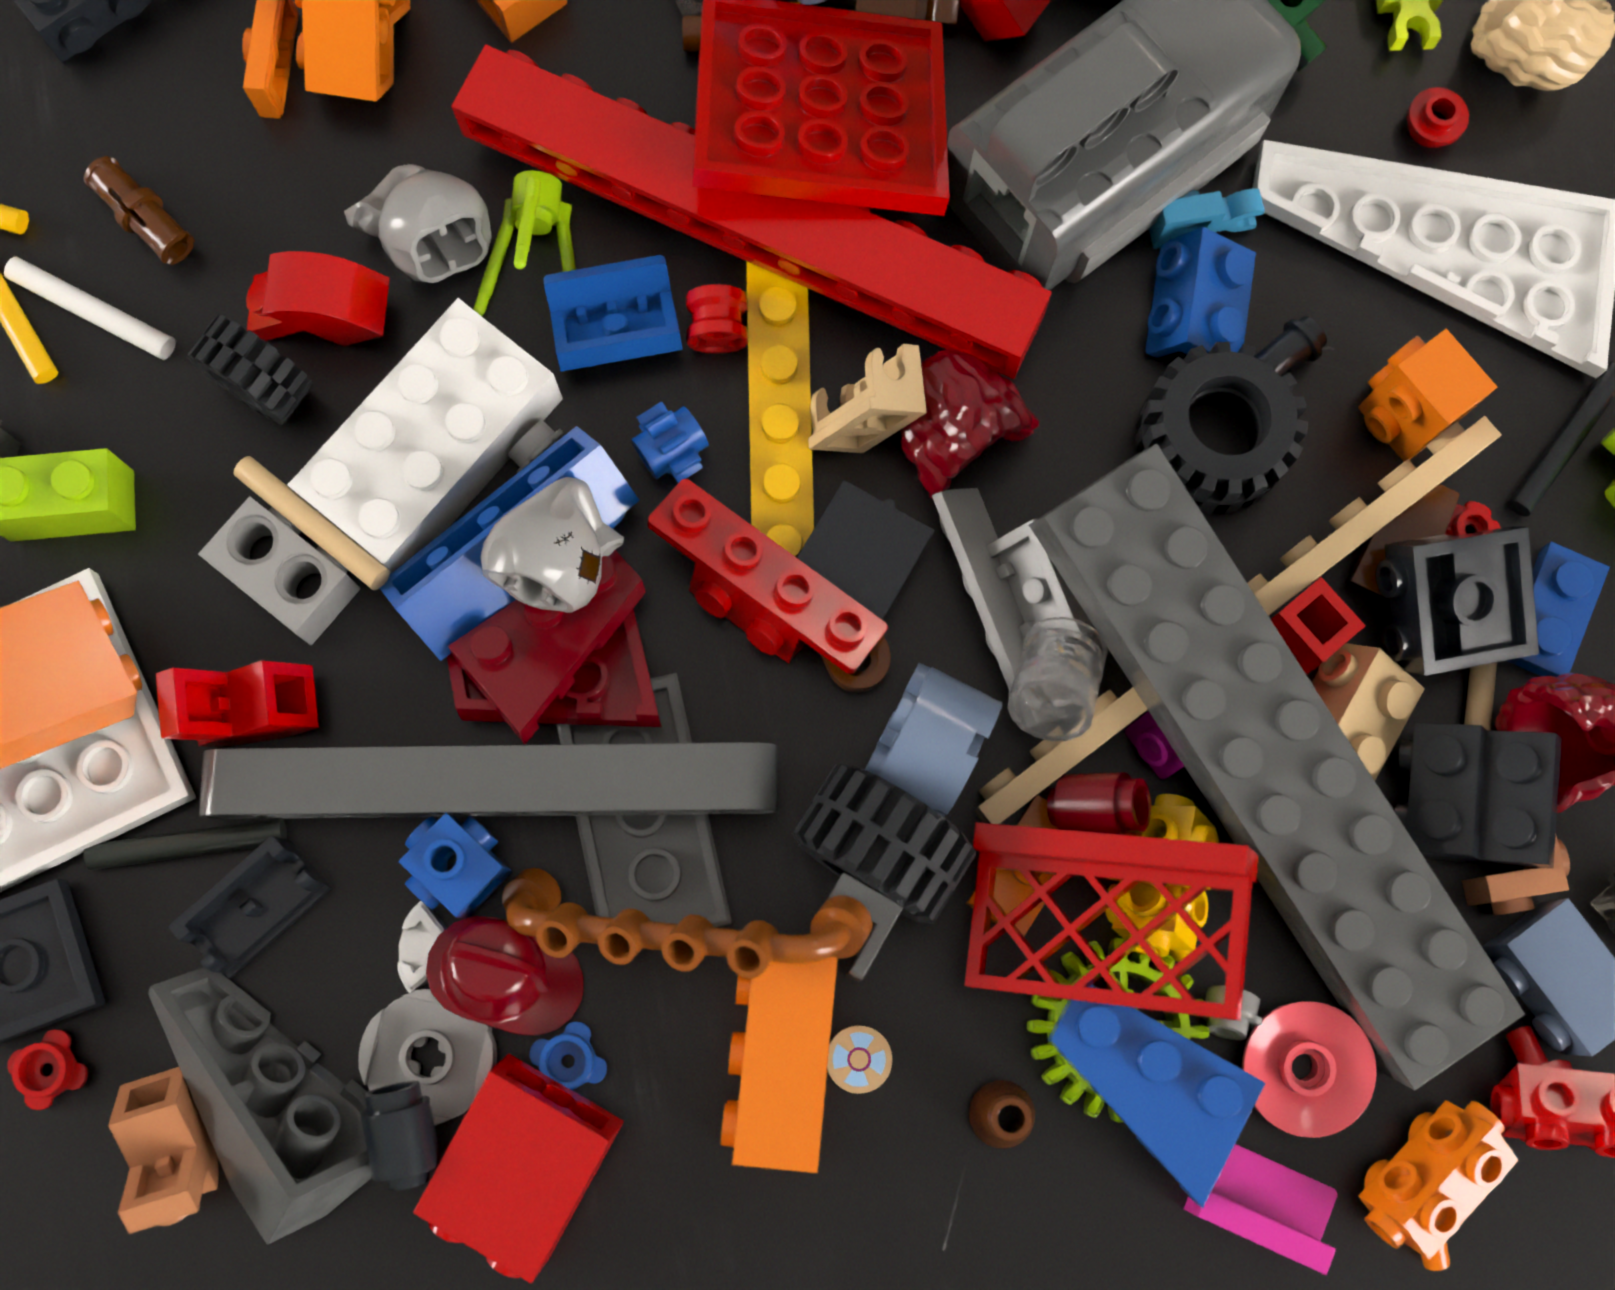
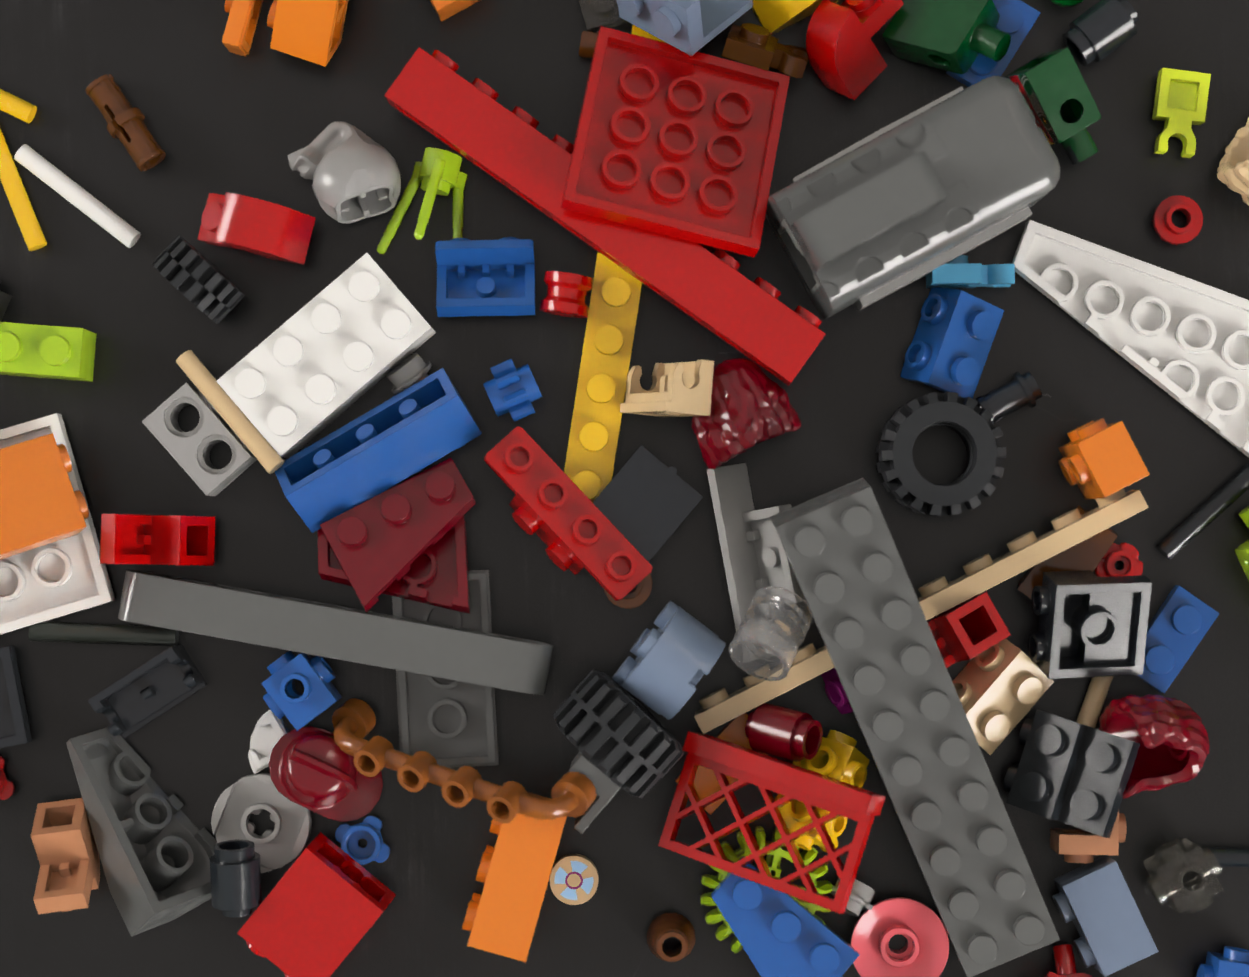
camera: 15 degrees right, 10 degrees up
(550, 548) = (409, 470): light grey piece -> none

